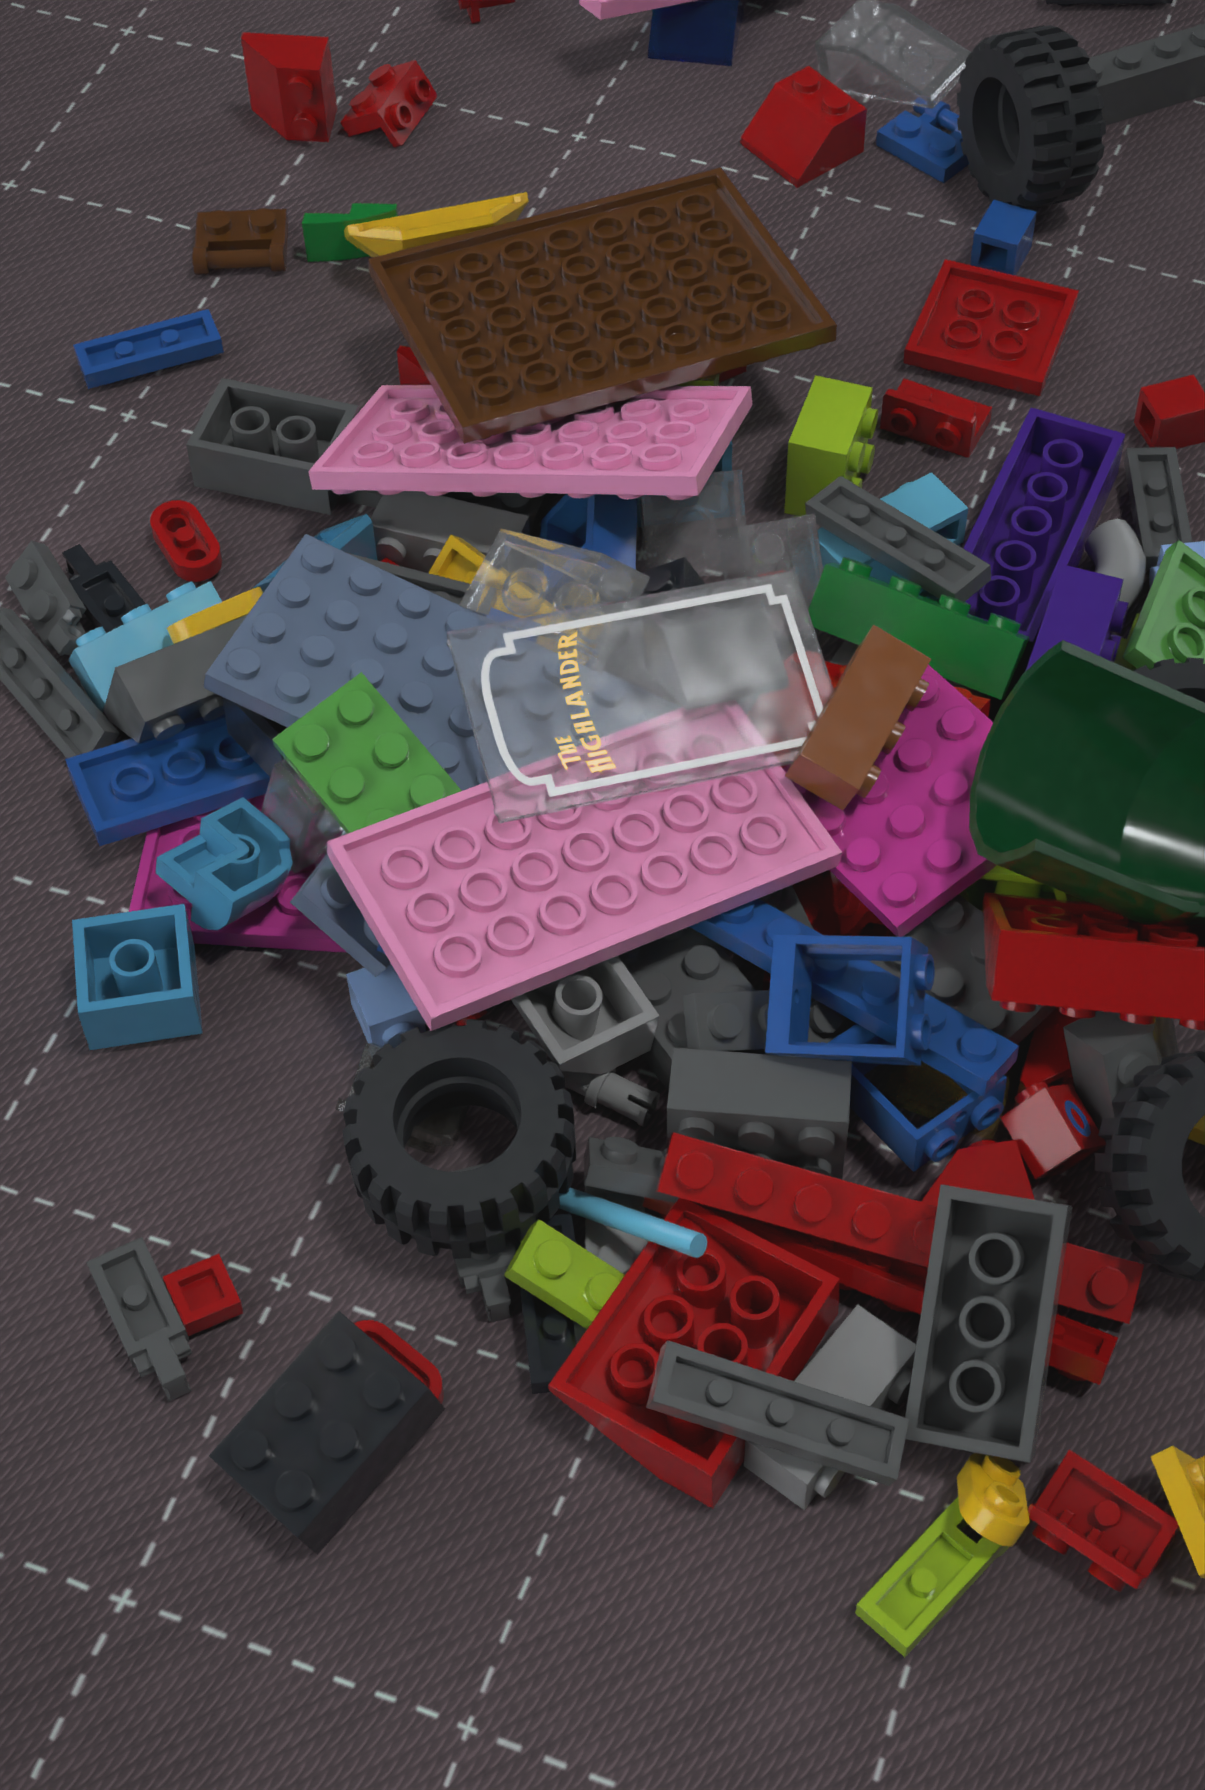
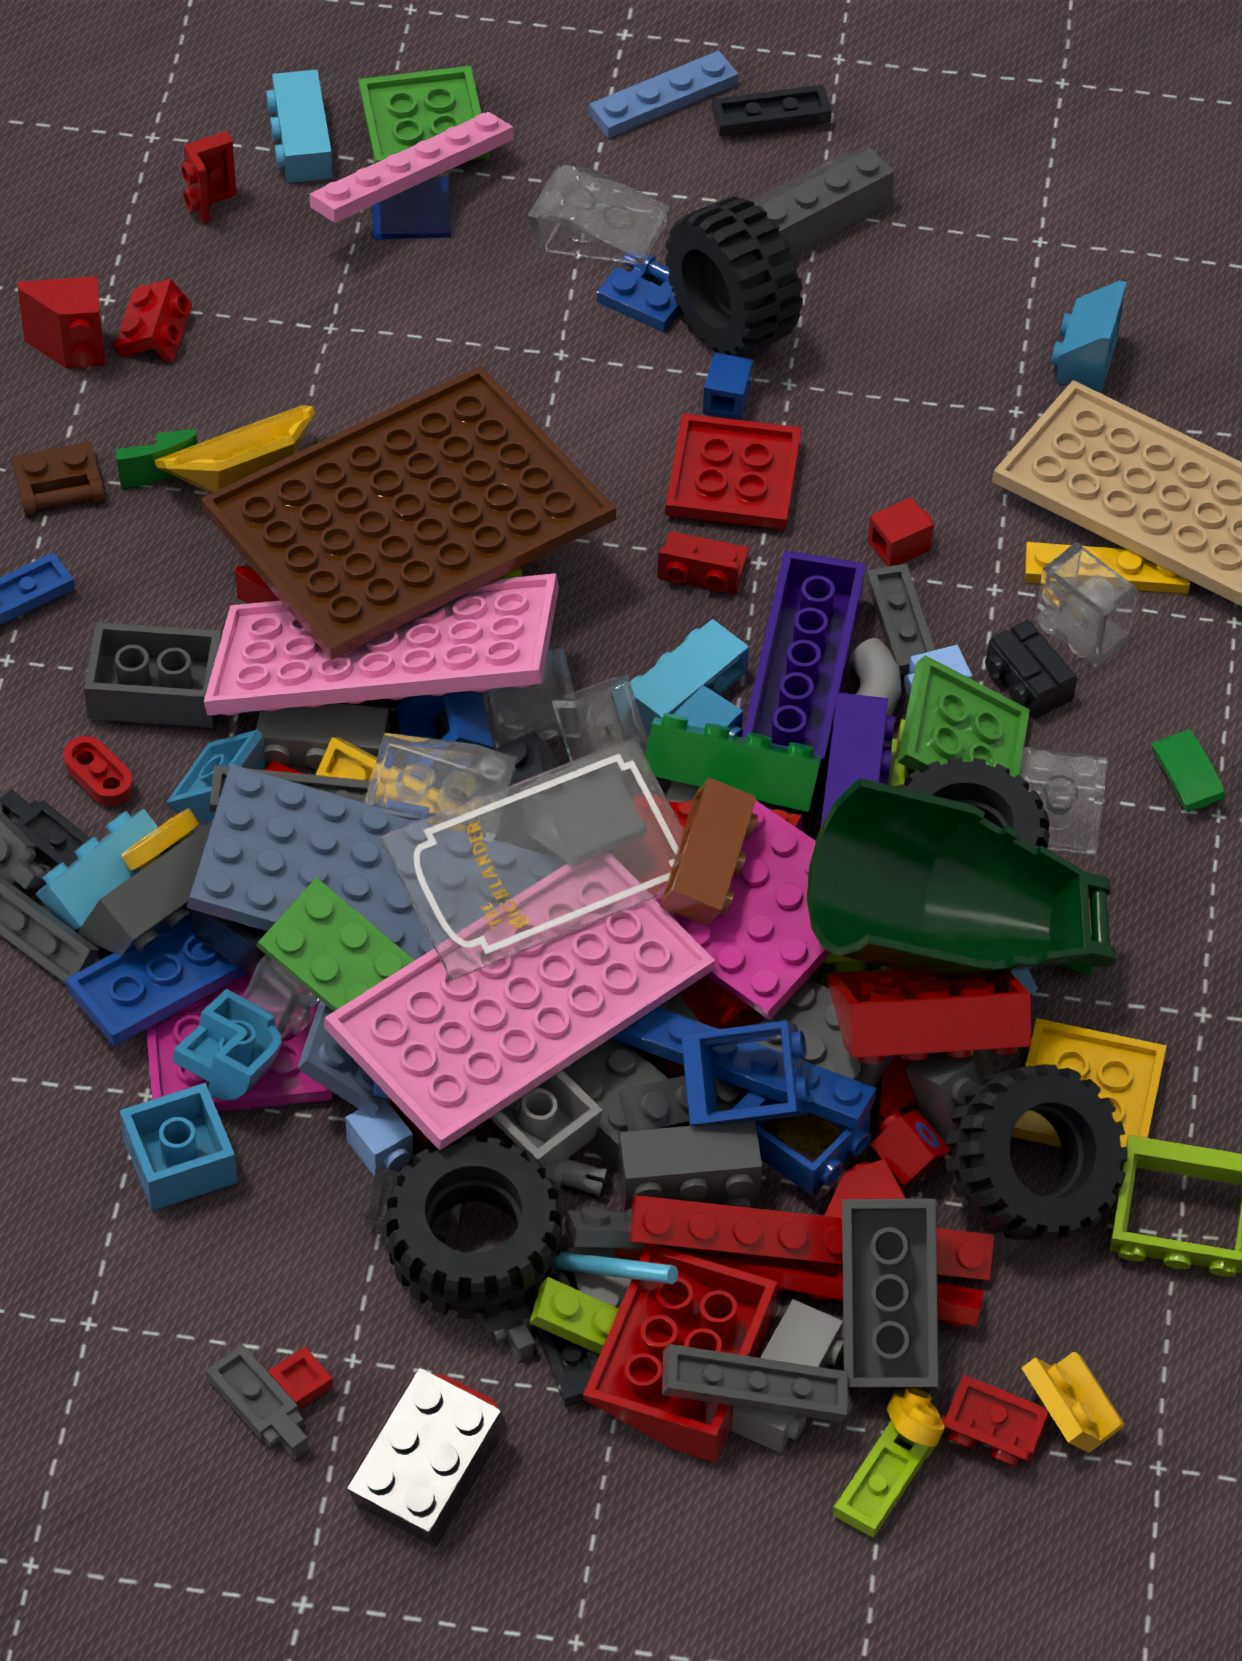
camera: 15 degrees left, 0 degrees up
(806, 127) = (534, 297): red slope -> none
(829, 440) = (626, 611): lime brick -> none
(898, 541) = (700, 688): dark grey plate -> none

